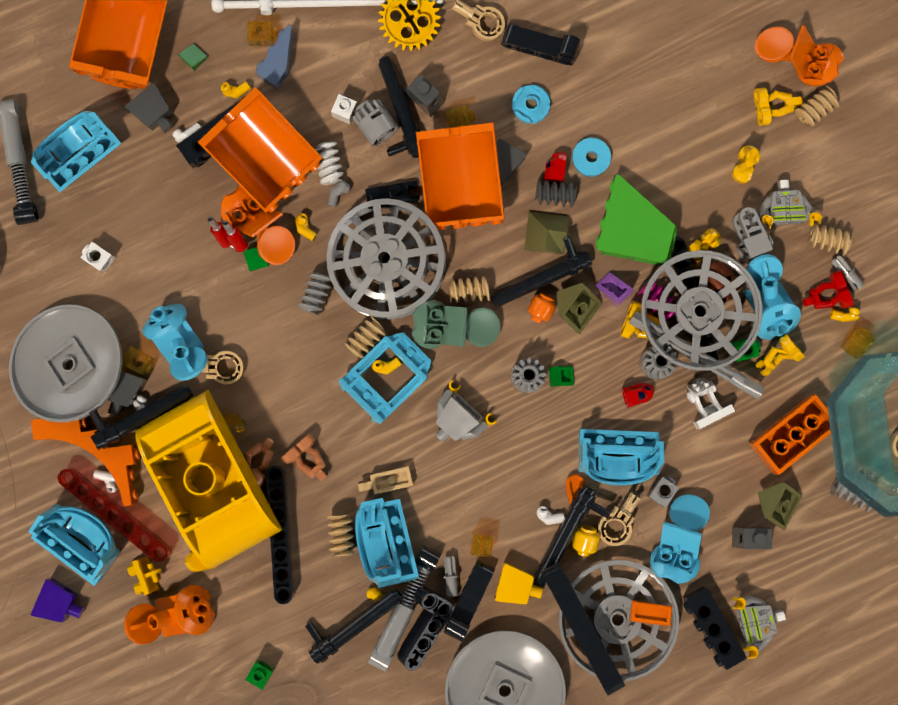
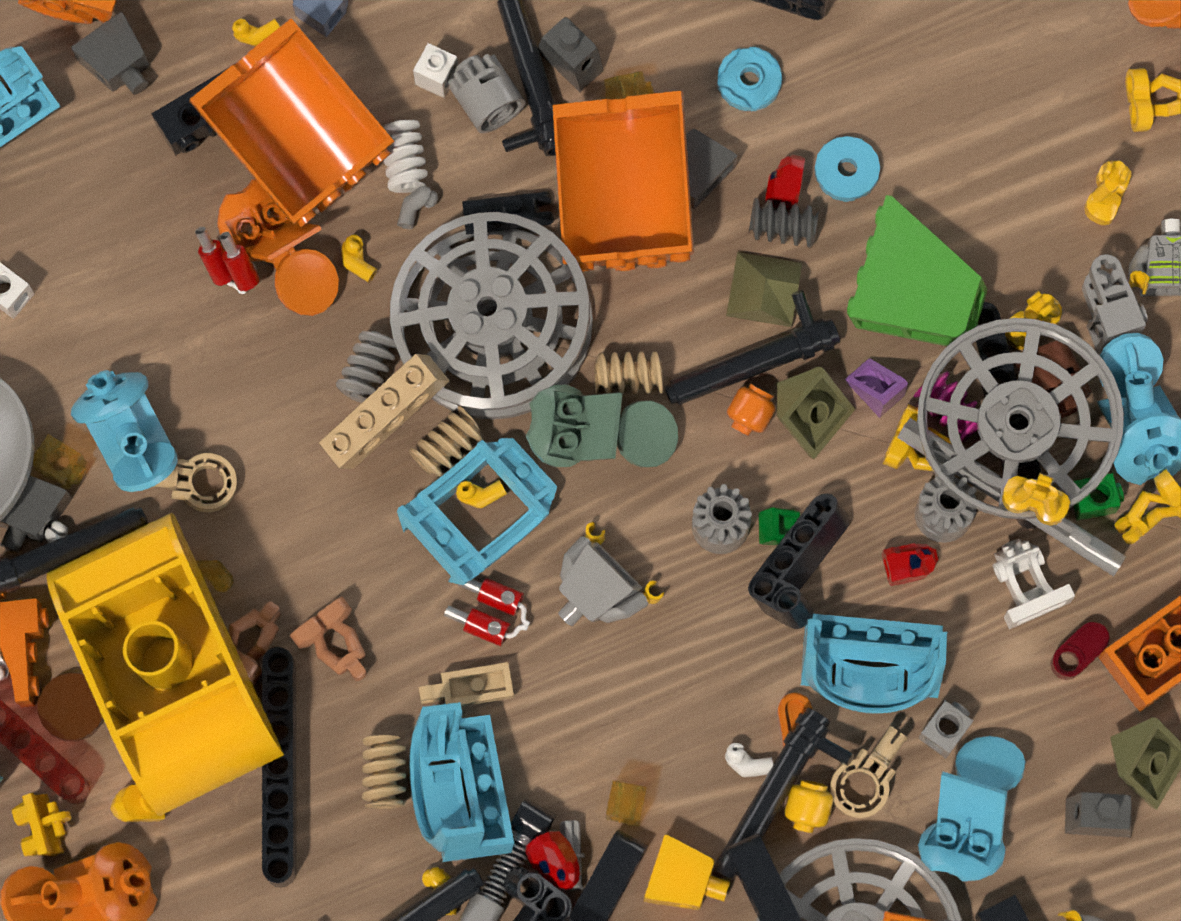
camera: 10 degrees right, 10 degrees down
(152, 507) = (69, 708): none -> reddish brown tile
(180, 136) = (157, 100): white arm -> none
(254, 260) = (268, 307): green slope -> none
(327, 322) = (384, 411): none -> tan brick
(393, 444) = (485, 625): none -> red piece
(442, 582) = (554, 859): none -> red rock
(577, 398) = (795, 559): none -> black beam
(719, 362) = (1037, 496): none -> yellow piece
(740, 437) = (1085, 646): none -> dark red piece

